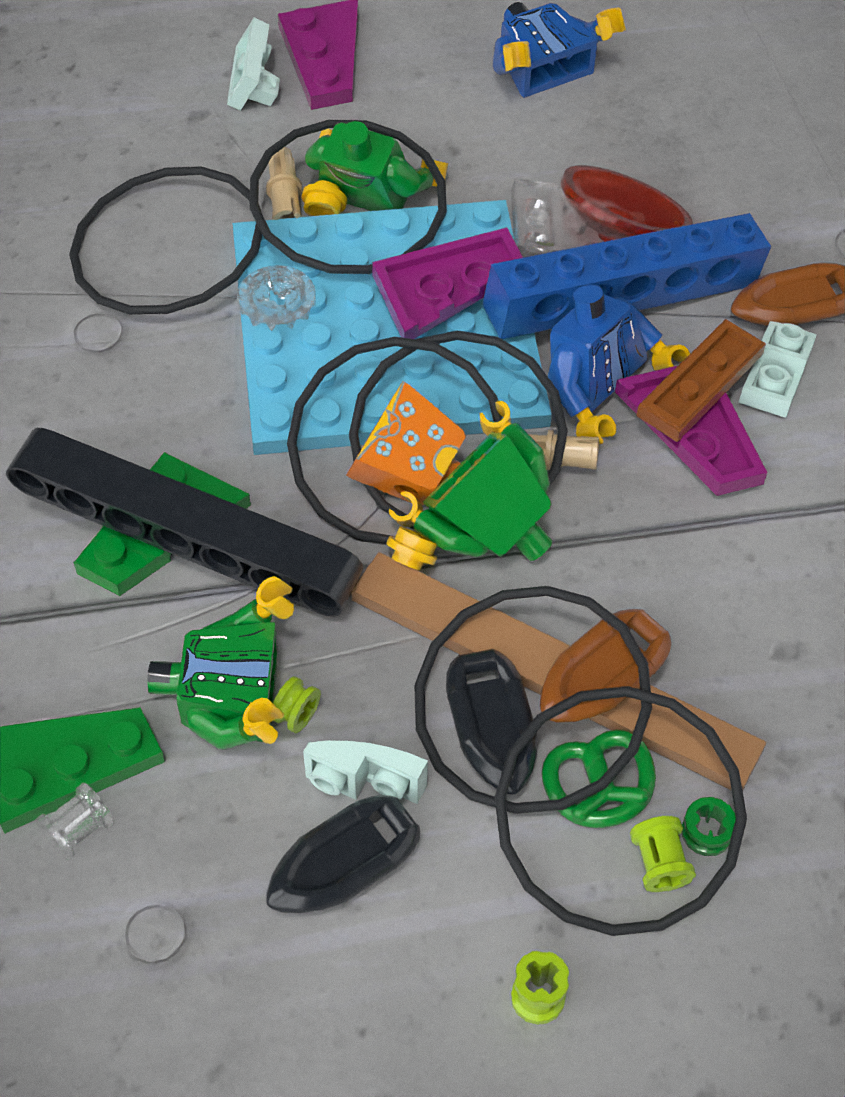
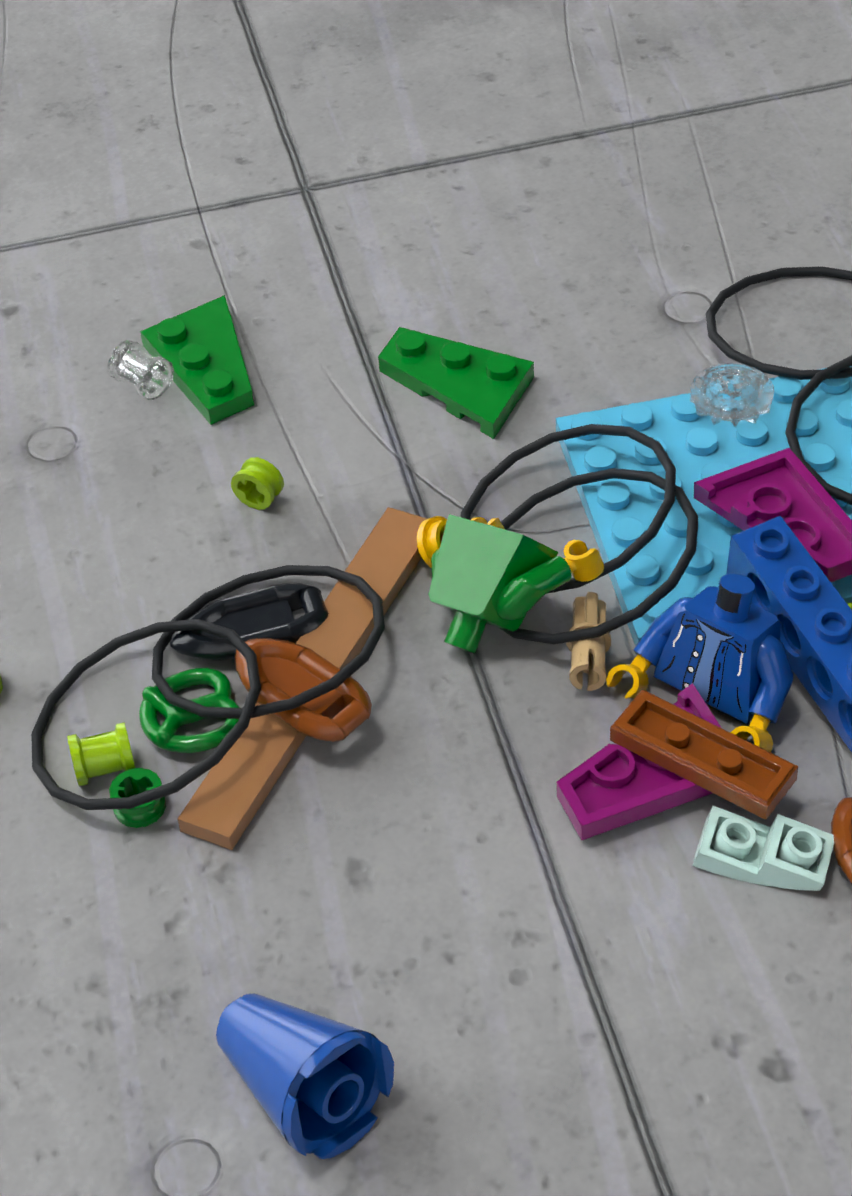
camera: 90 degrees right, 10 degrees down
(183, 520) = (430, 376): black beam -> none
(229, 672) = (278, 426): green torso -> none
(342, 856) = (110, 537): black piece -> none
(347, 765) = (188, 545): light aqua slope -> none
(408, 447) = (555, 503): orange torso -> none

